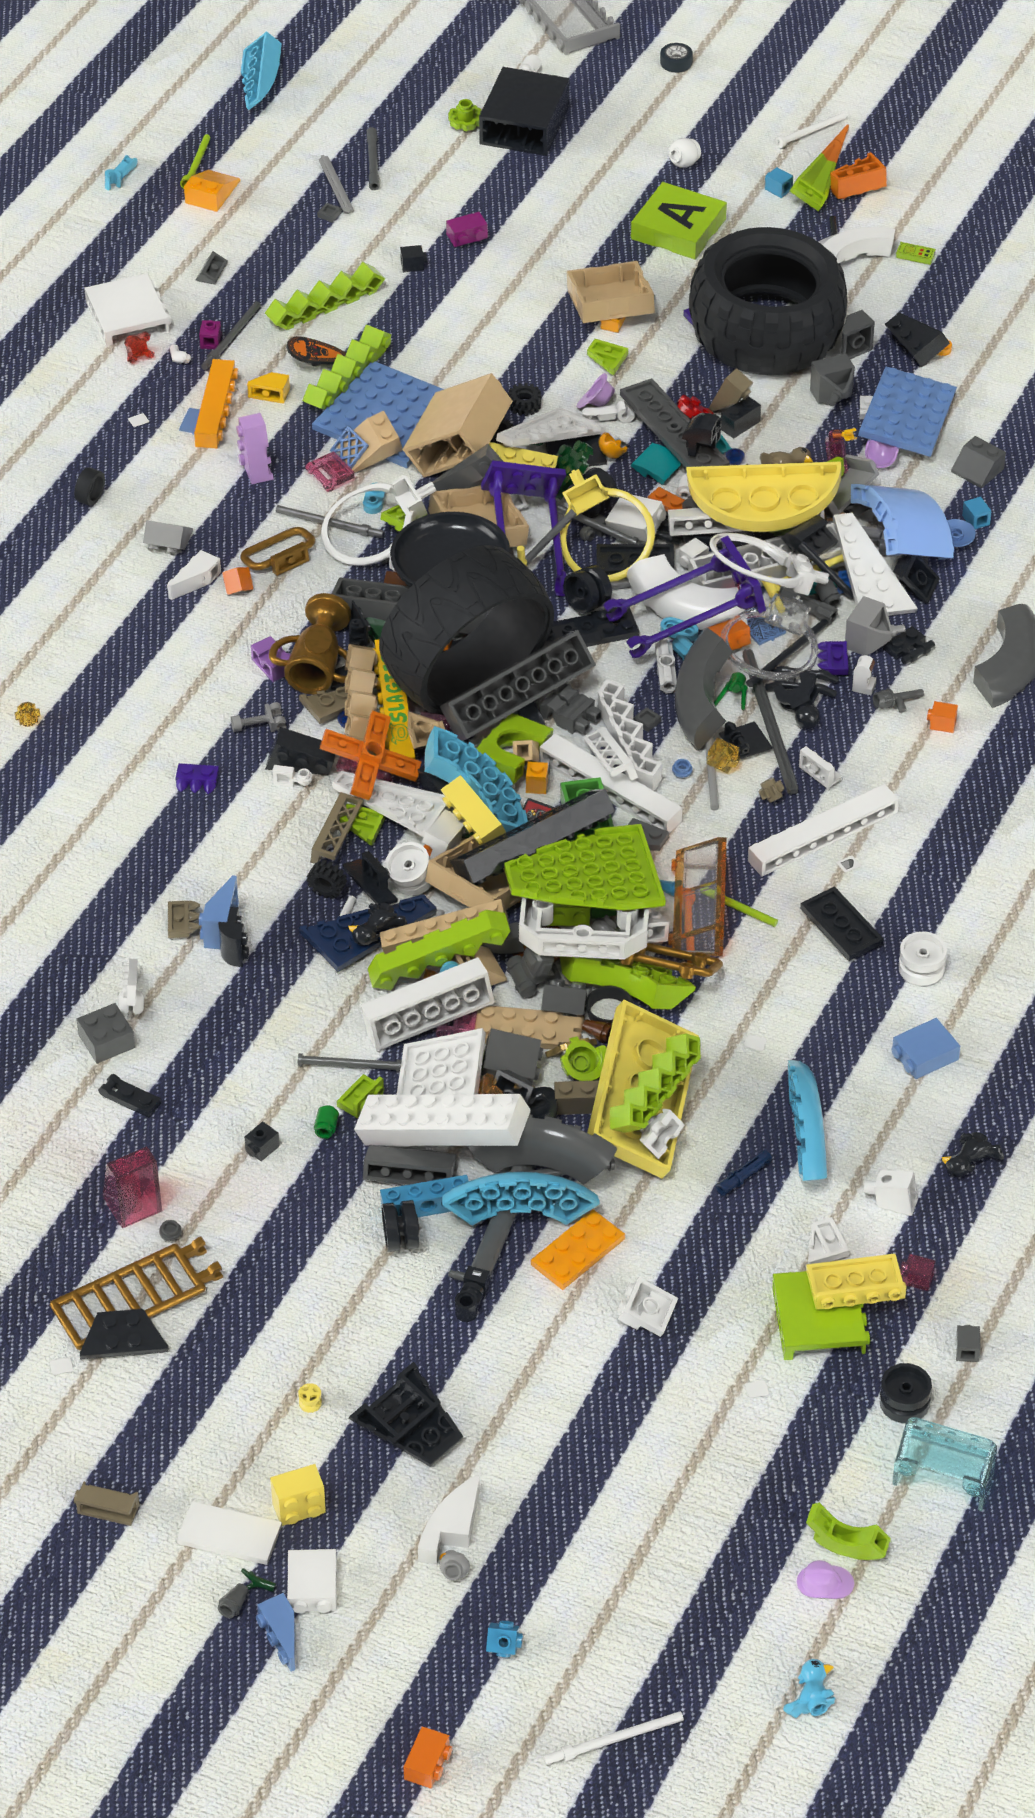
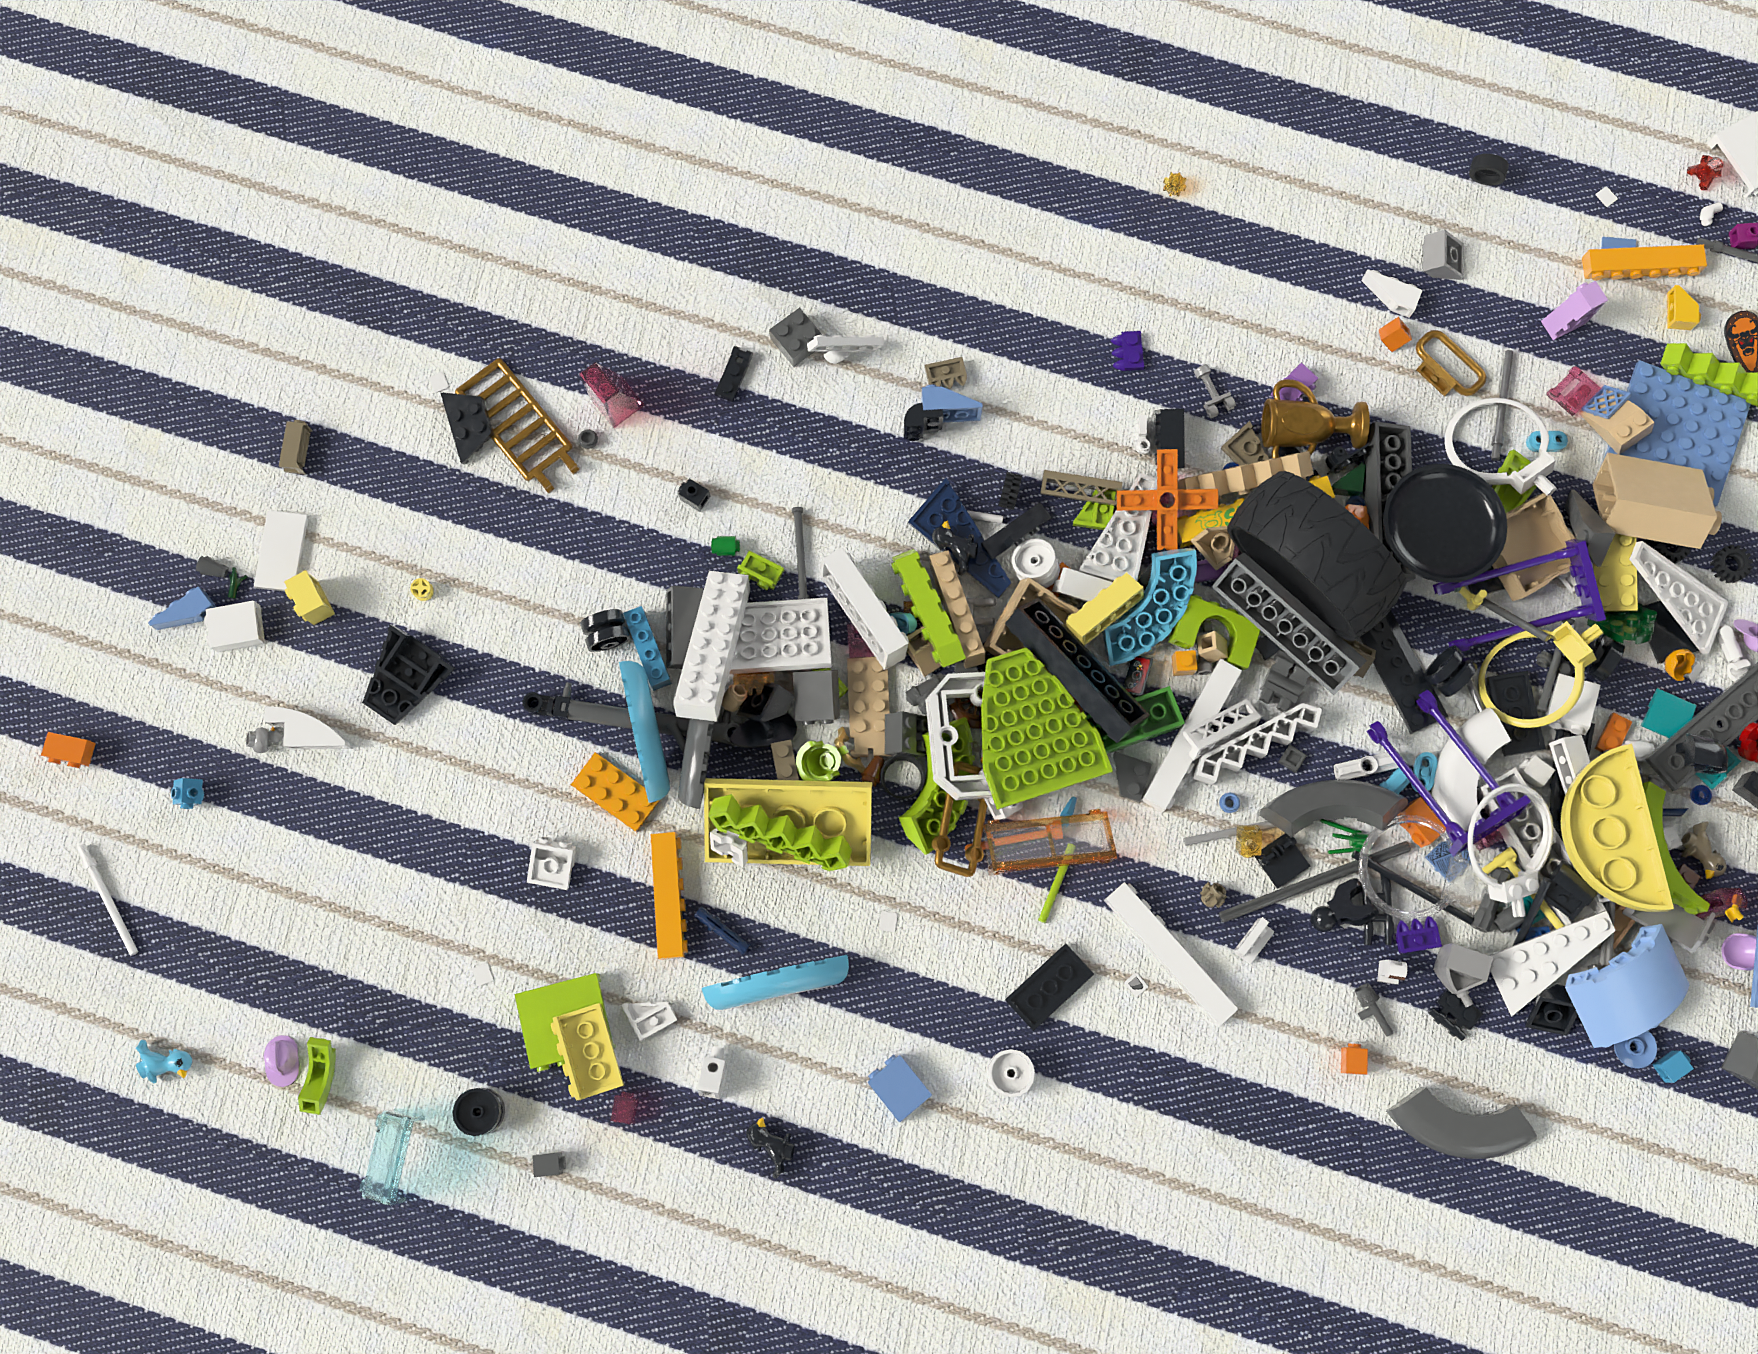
camera: 80 degrees right, 30 degrees up
(699, 1212) = (667, 896): none -> light orange brick

